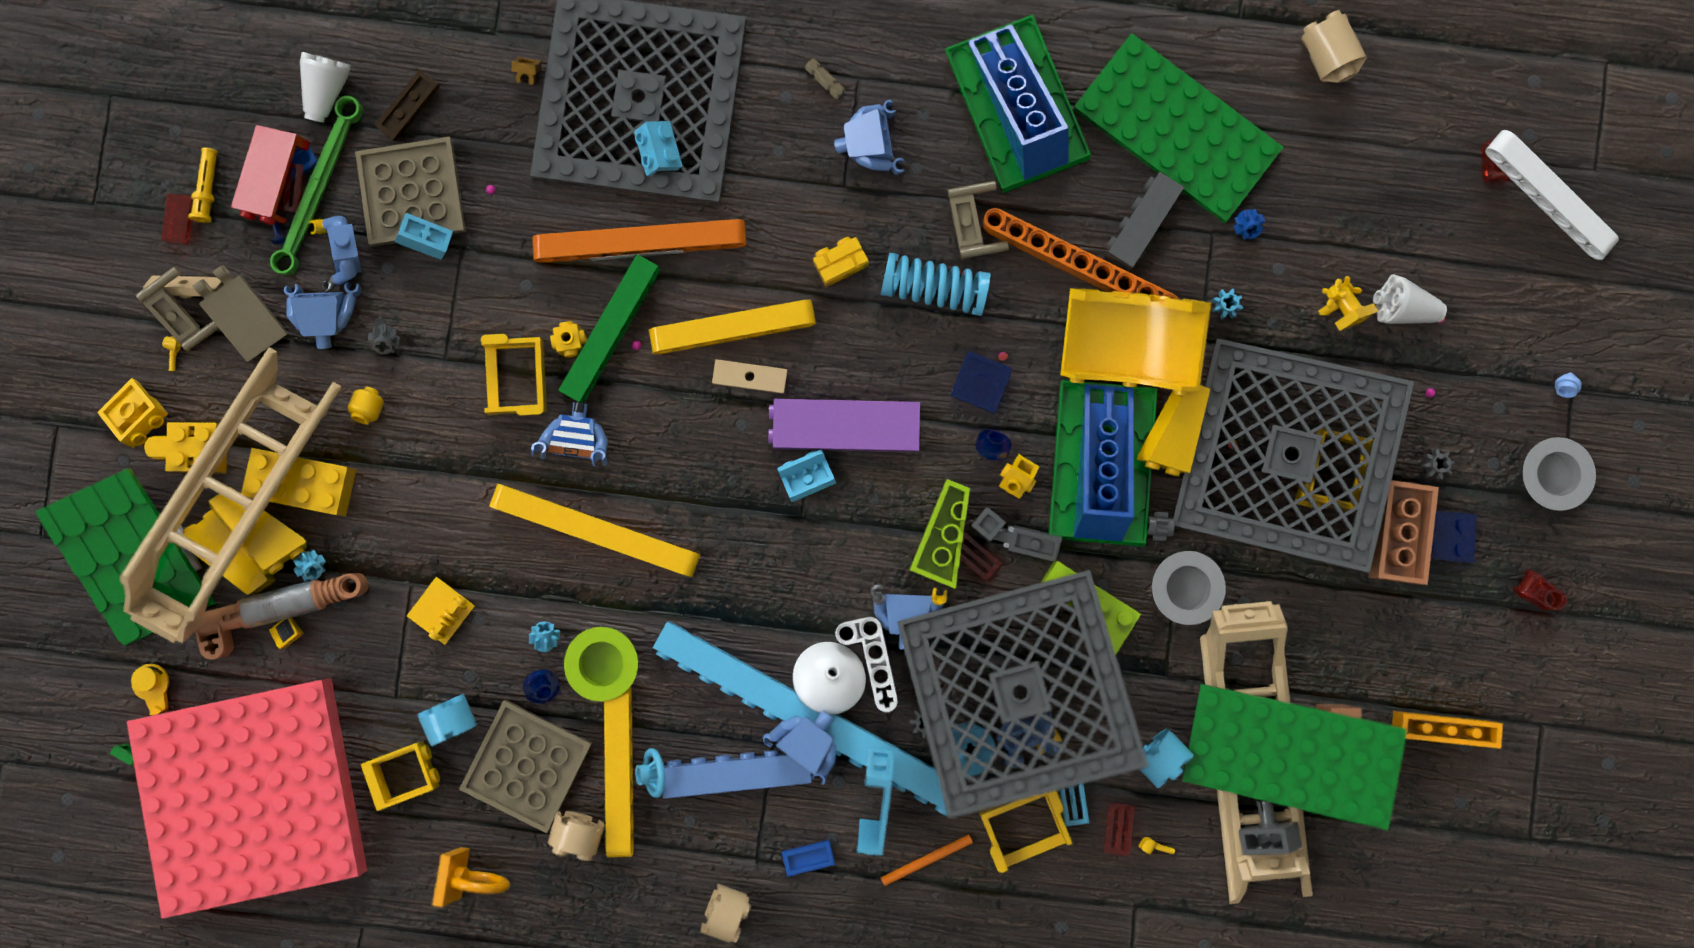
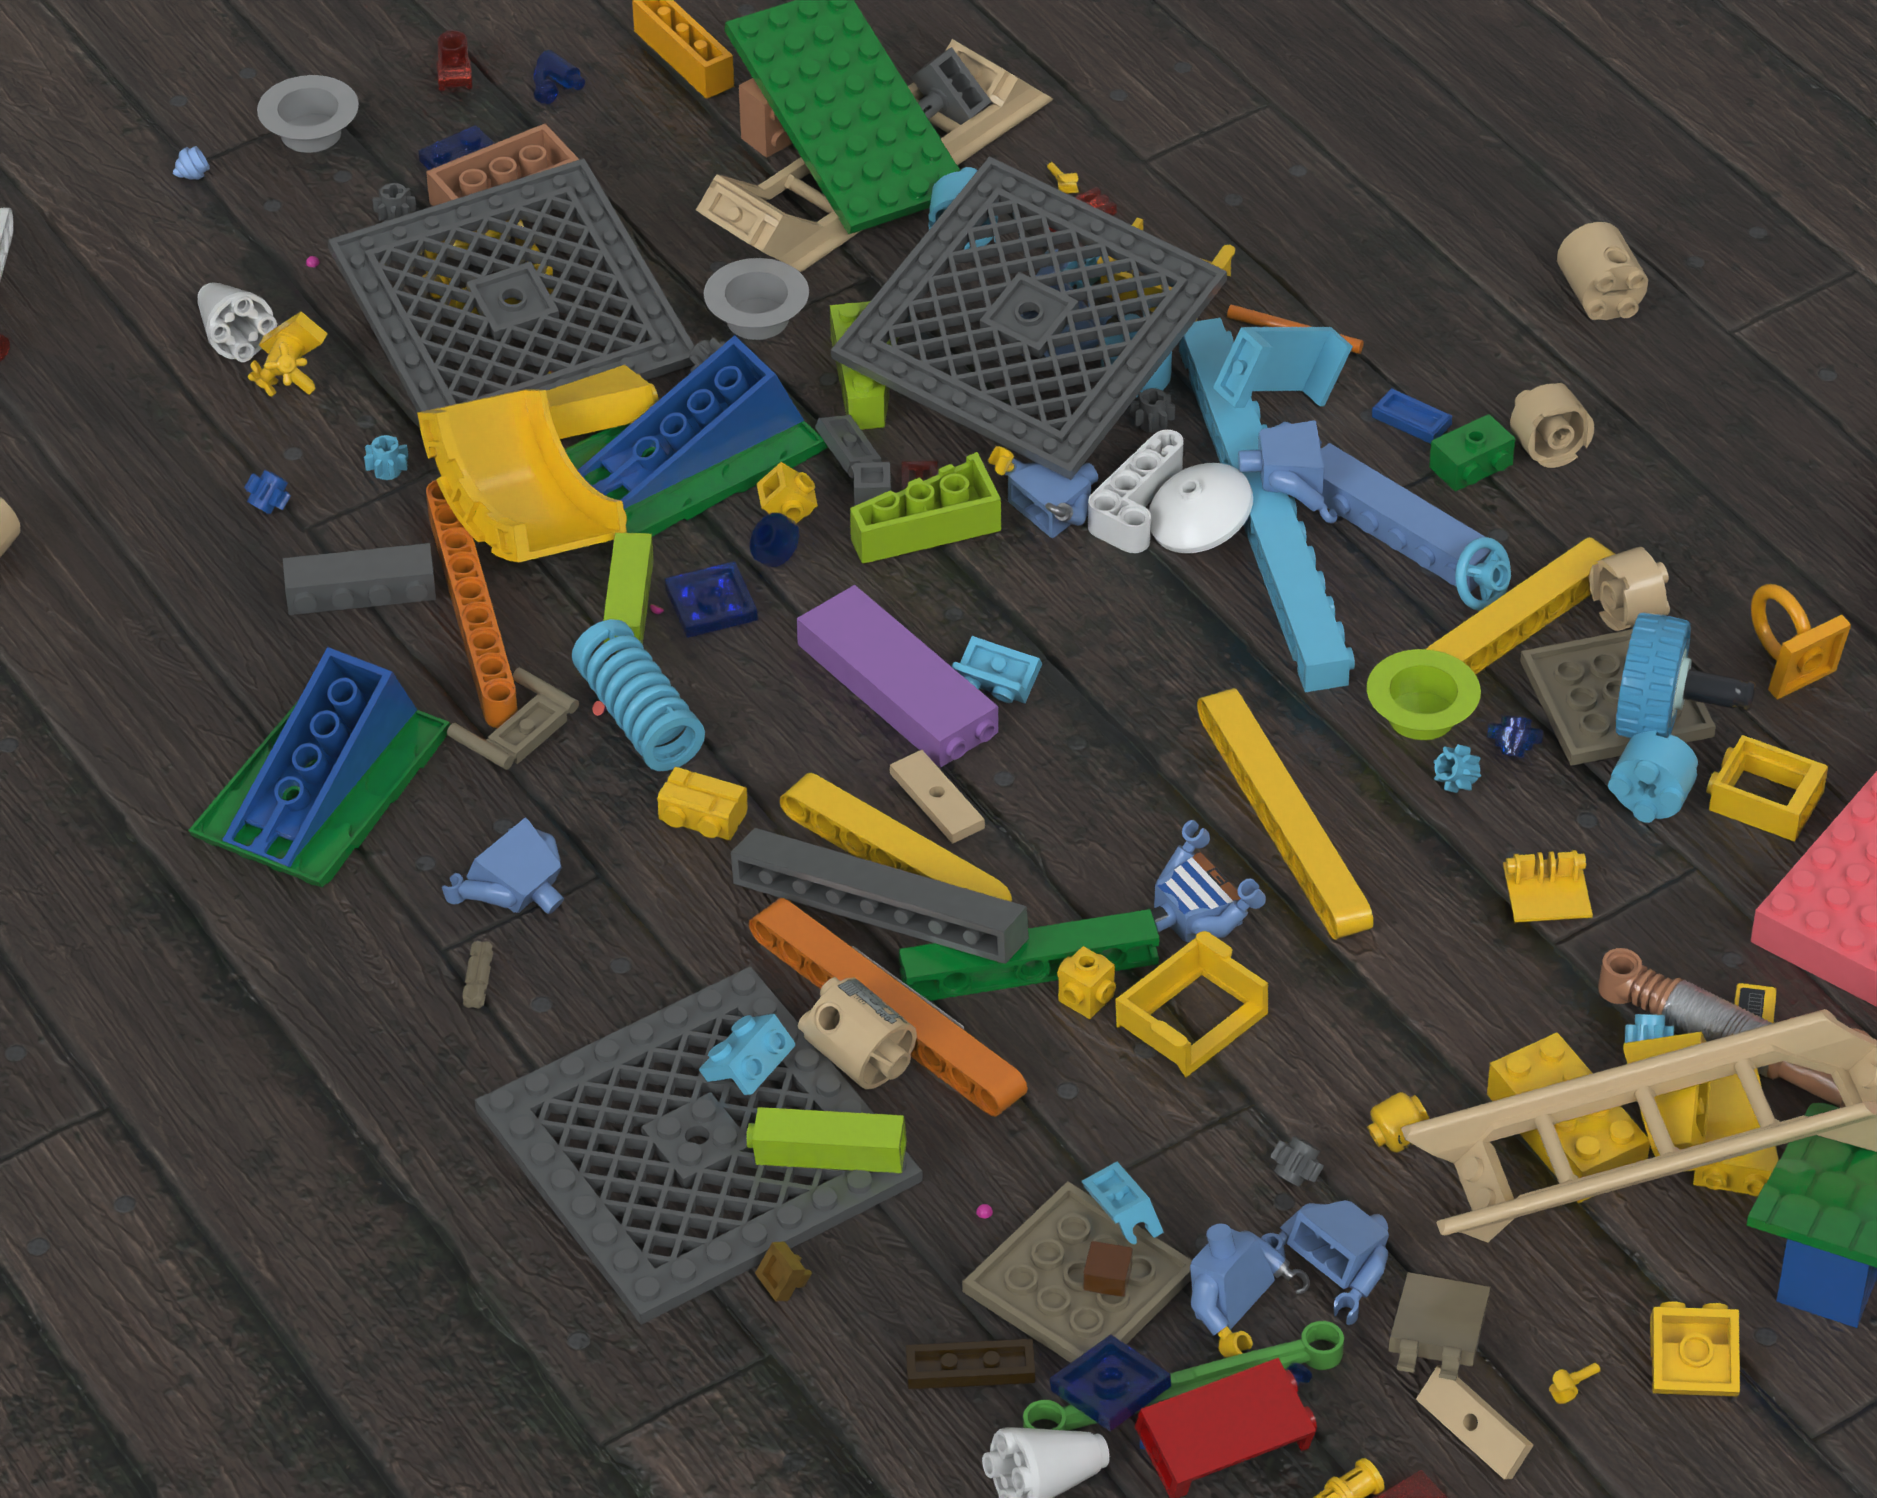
camera: 130 degrees left, 40 degrees down
(172, 314) = (1524, 1394): dark tan plate -> none
(182, 446) = (1658, 1252): yellow brick -> none
(330, 142) = (1110, 1382): none -> clear blue plate
(393, 197) = (1107, 1269): none -> reddish brown piece
(479, 767) = (1660, 678): none -> dark azure wheel
(571, 137) = (828, 1140): none -> lime brick
(620, 203) = (859, 1032): none -> tan cylinder
(696, 283) = (880, 895): none -> dark grey brick
(748, 858) = (1472, 452): none -> green brick
(1018, 343) = (630, 581): none -> lime brick
(1178, 127) = (203, 629): green plate -> none
(1483, 648) = (558, 69): none -> clear blue plant

